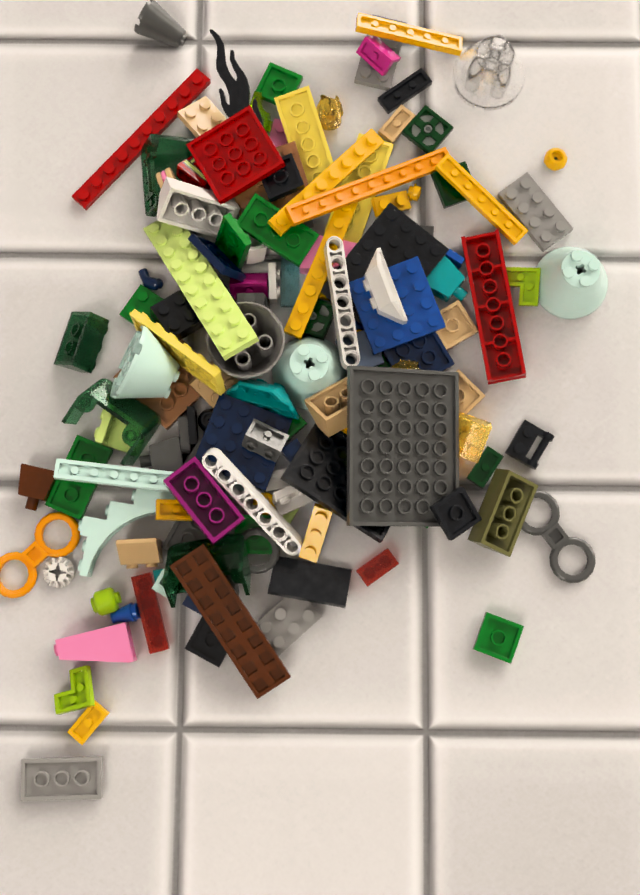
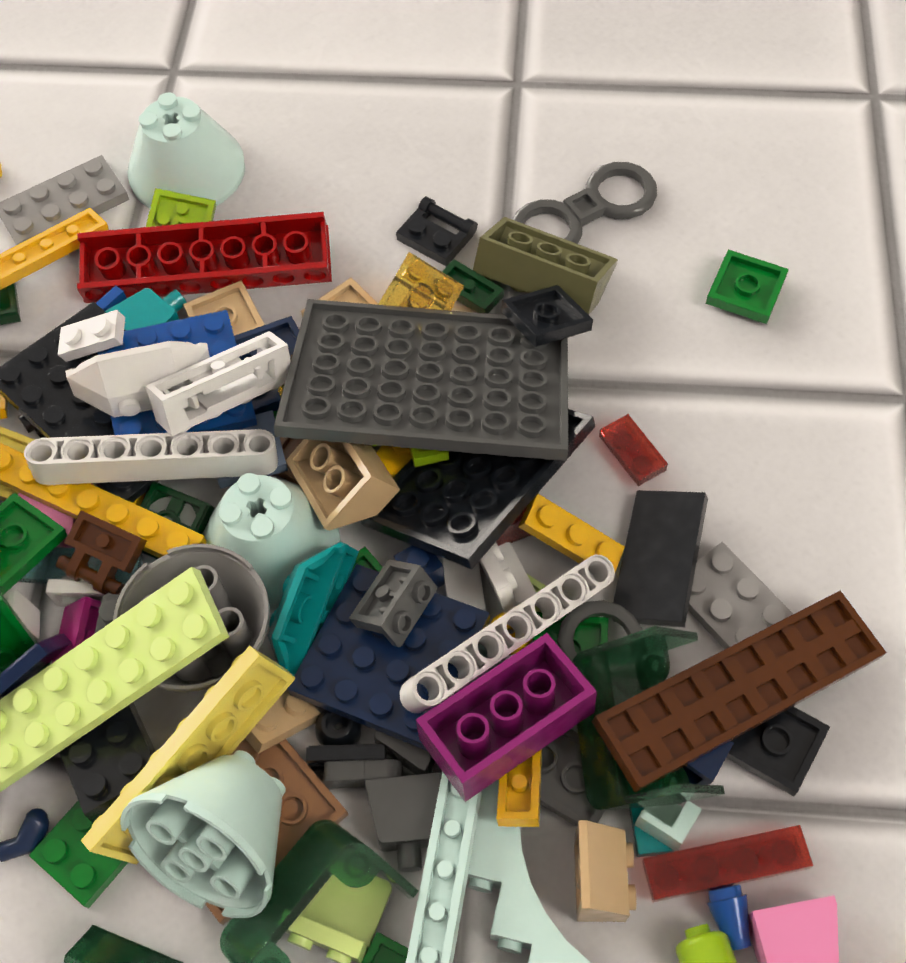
camera: 85 degrees left, 20 degrees down
(290, 289) = (105, 542): none -> reddish brown plate
(383, 332) = (219, 383): none -> white brick
(415, 254) = (91, 335): none -> white plate

